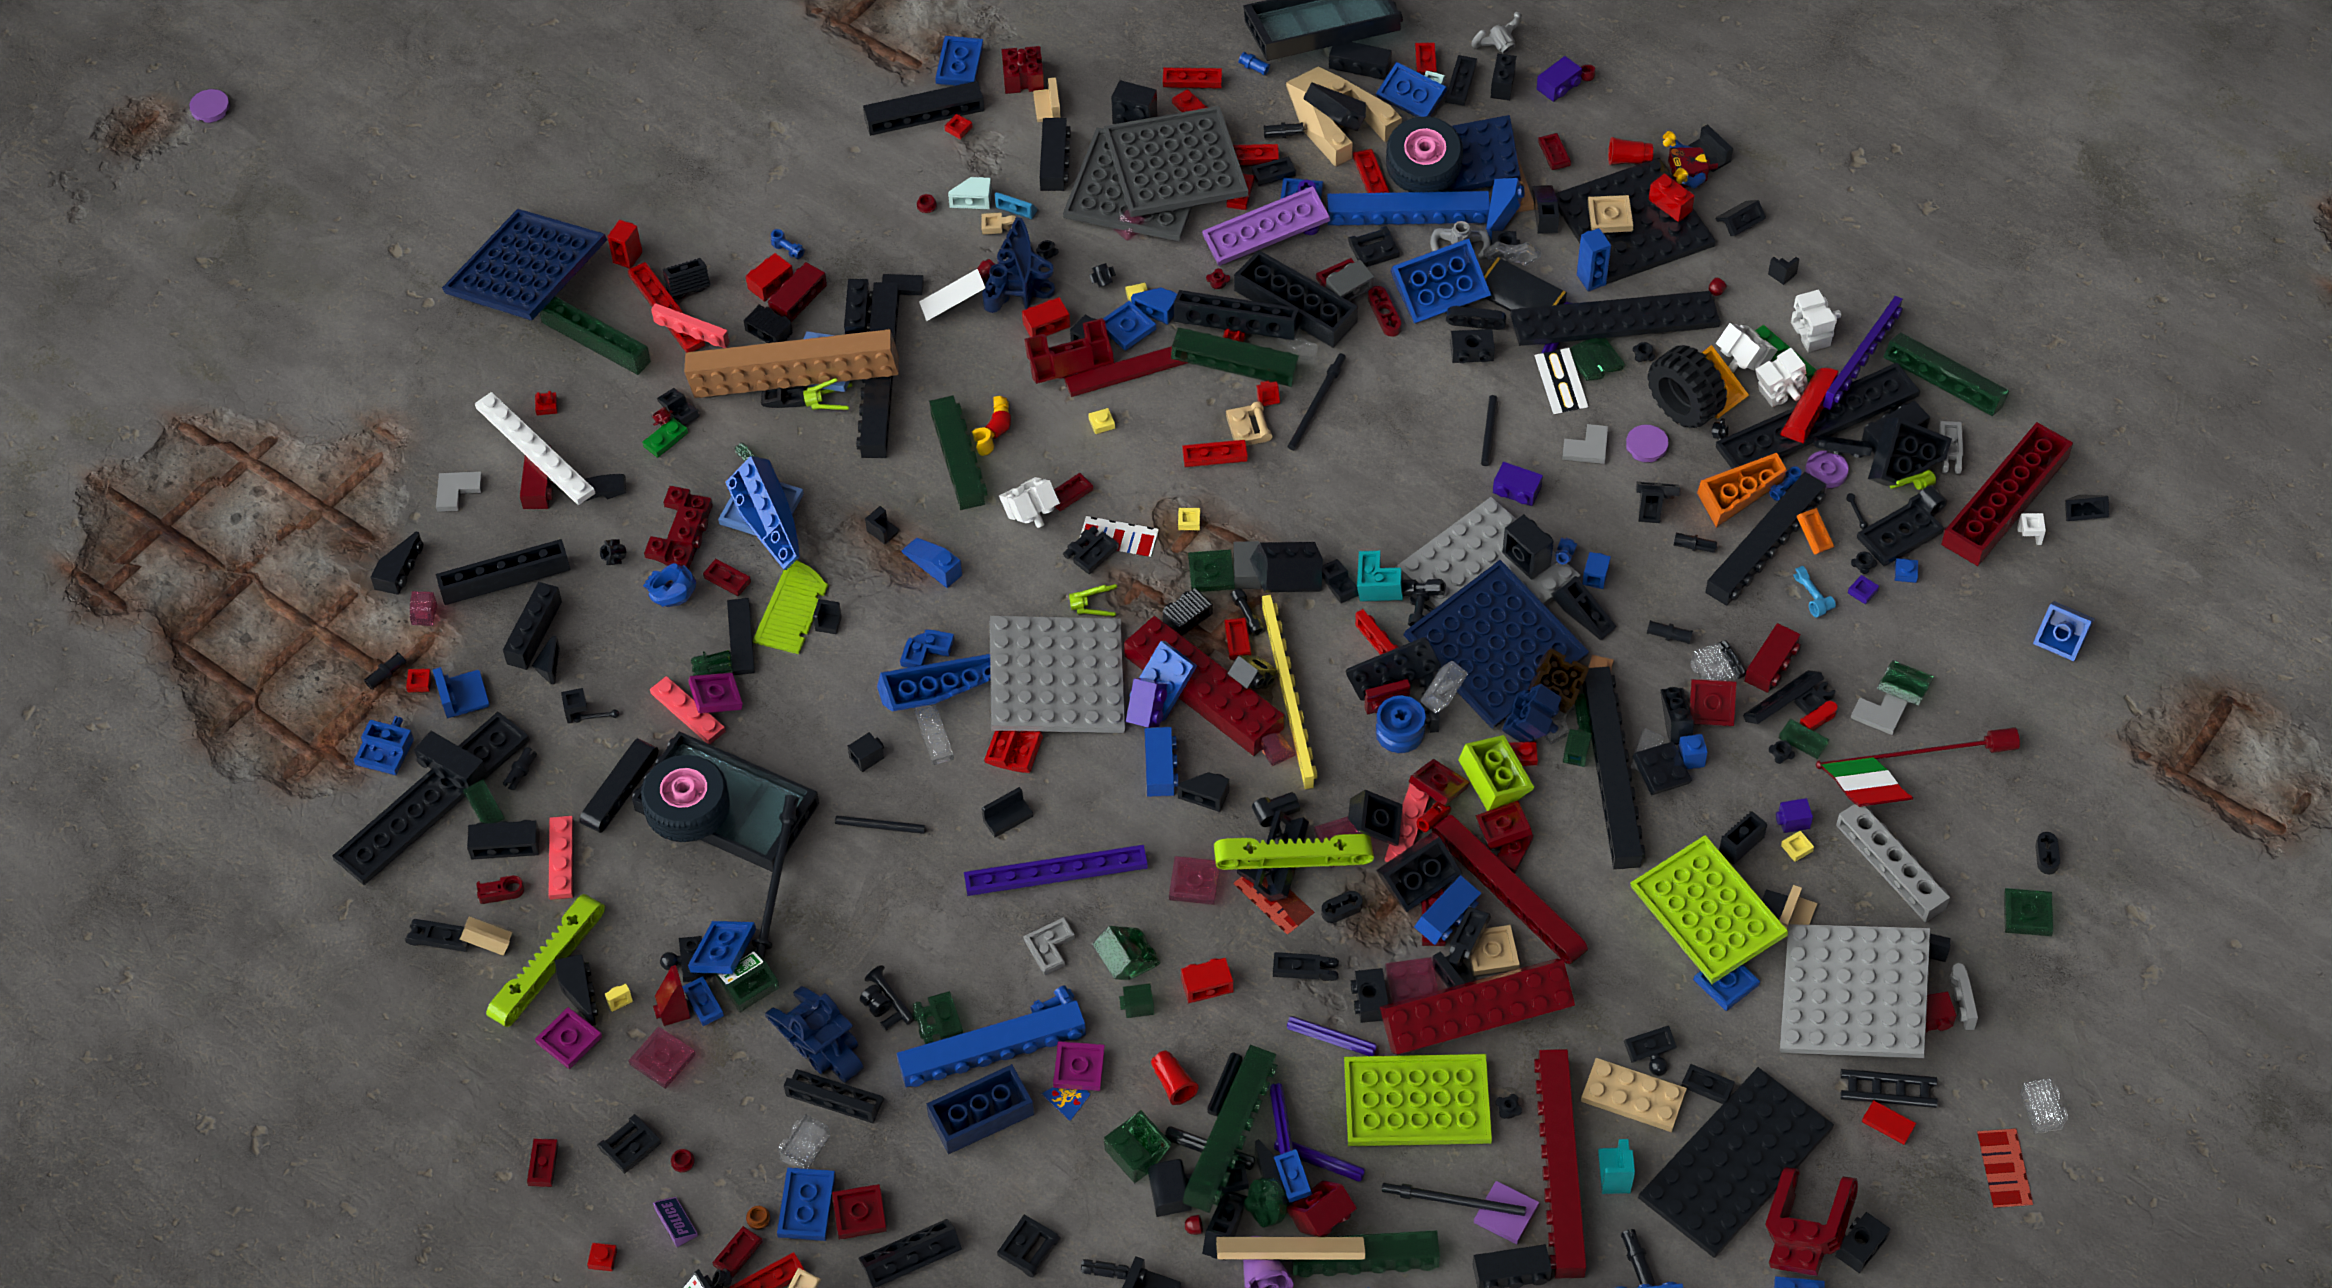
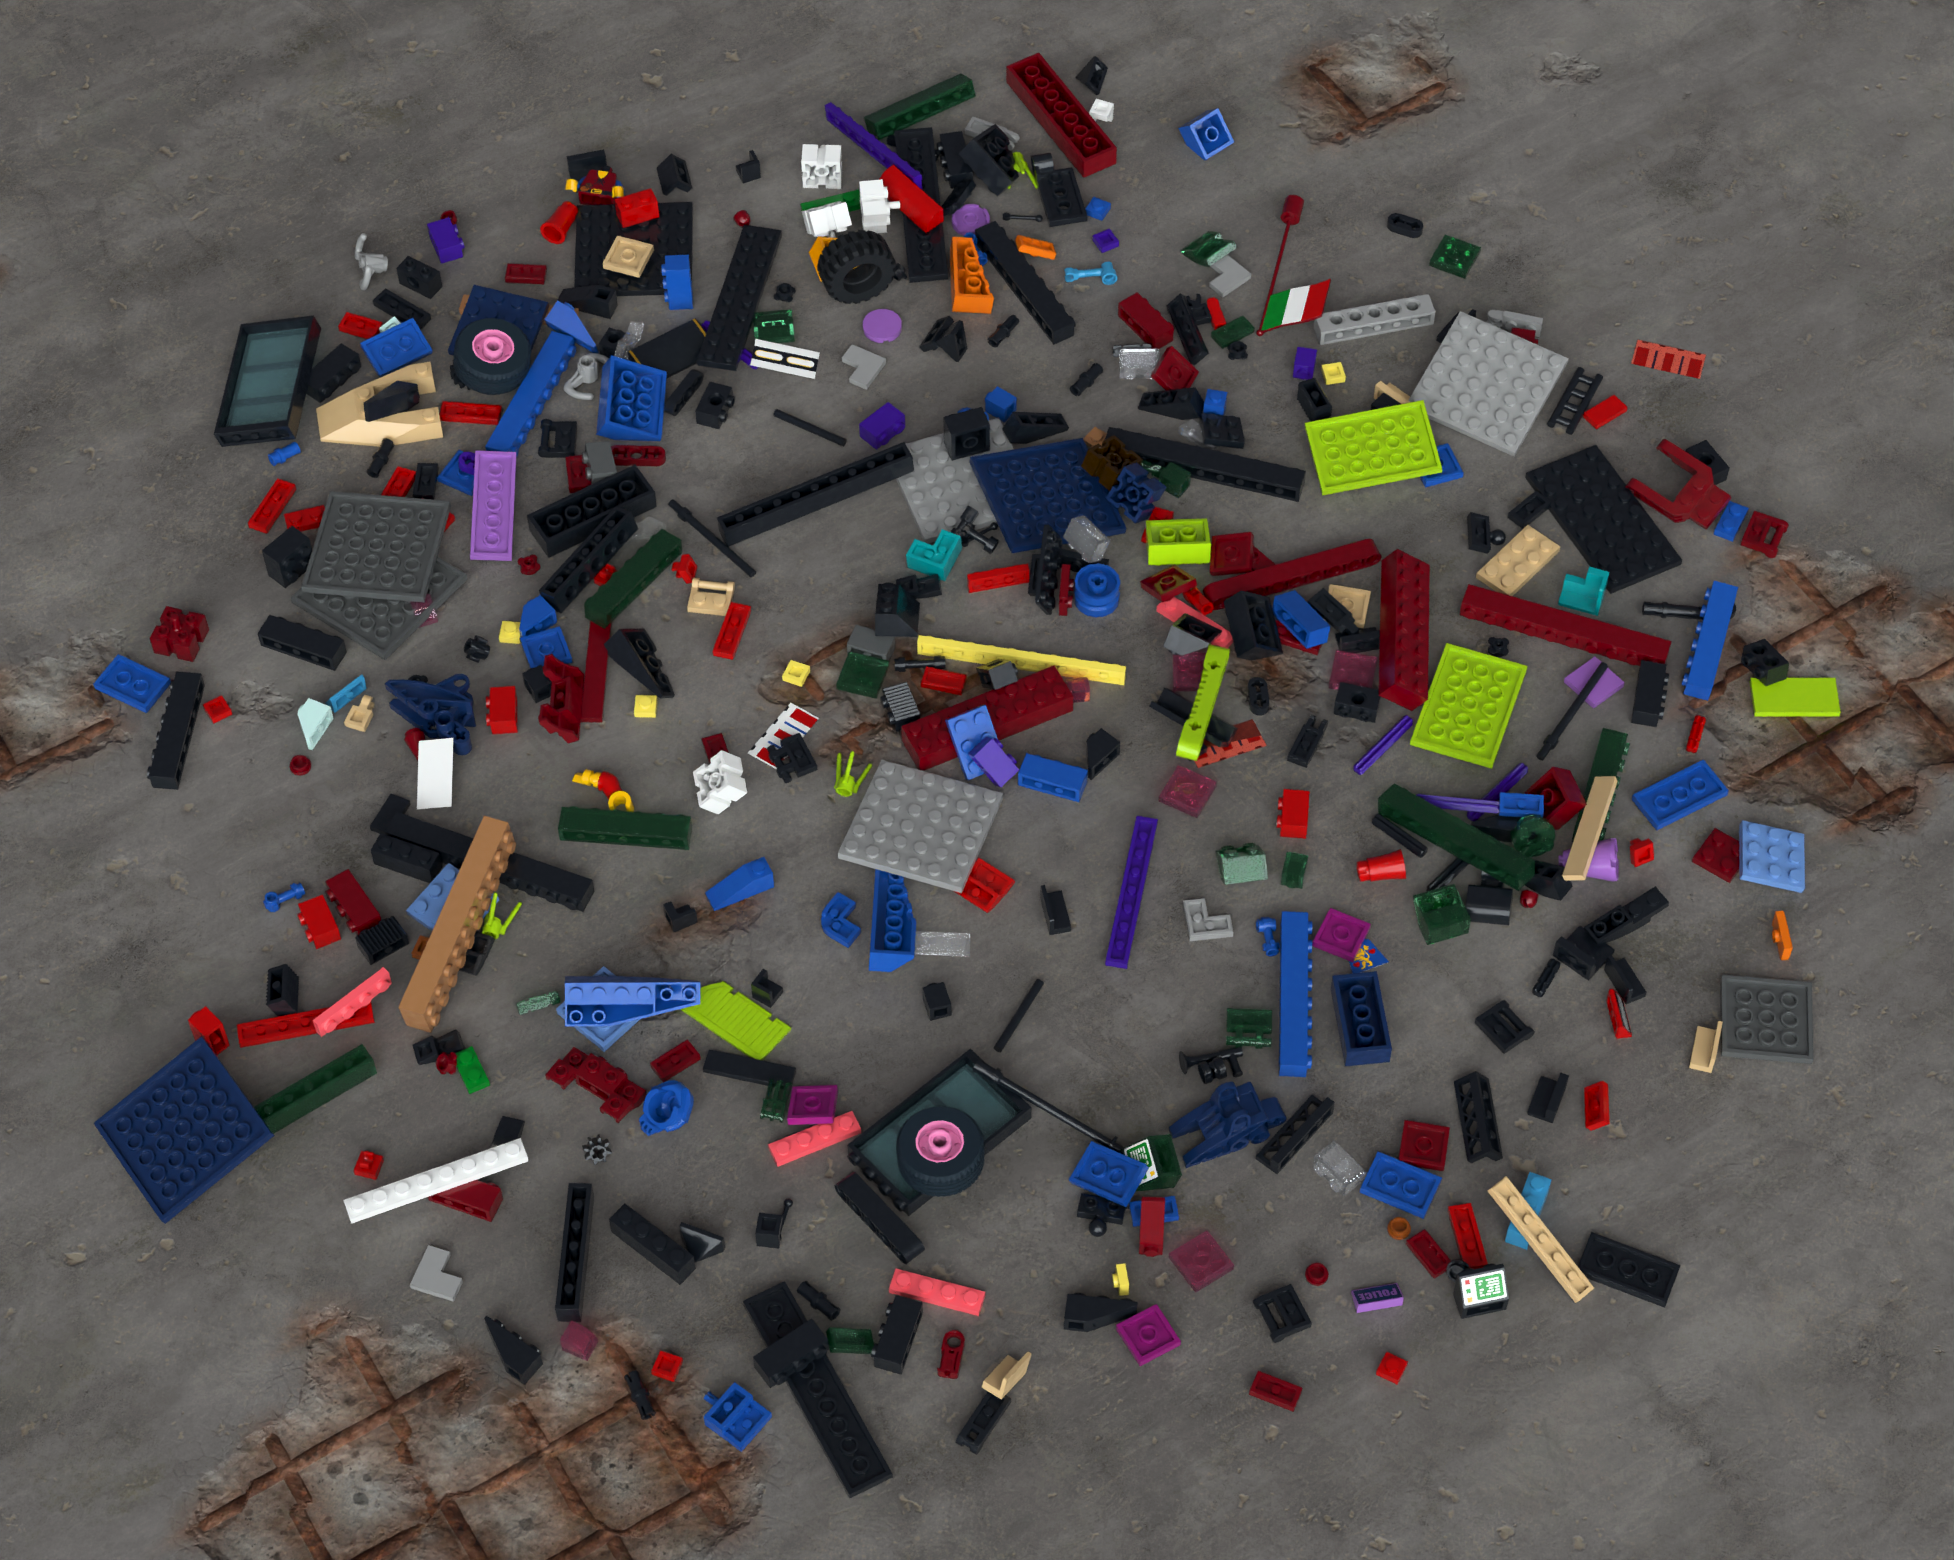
camera: 70 degrees left, 0 degrees up
(461, 692) = (701, 1330): blue bracket -> none
(509, 1003) = (1029, 1300): lime gear -> none
(1047, 101) = (230, 627): tan panel -> none
(1148, 395) = (636, 655): none -> black wedge
(1266, 808) = (1140, 713): black piece -> none
(1398, 457) = (815, 494): none -> black brick
(1864, 557) = (1077, 231): black plate -> none
(2043, 1105) = (1629, 313): clear brick -> none

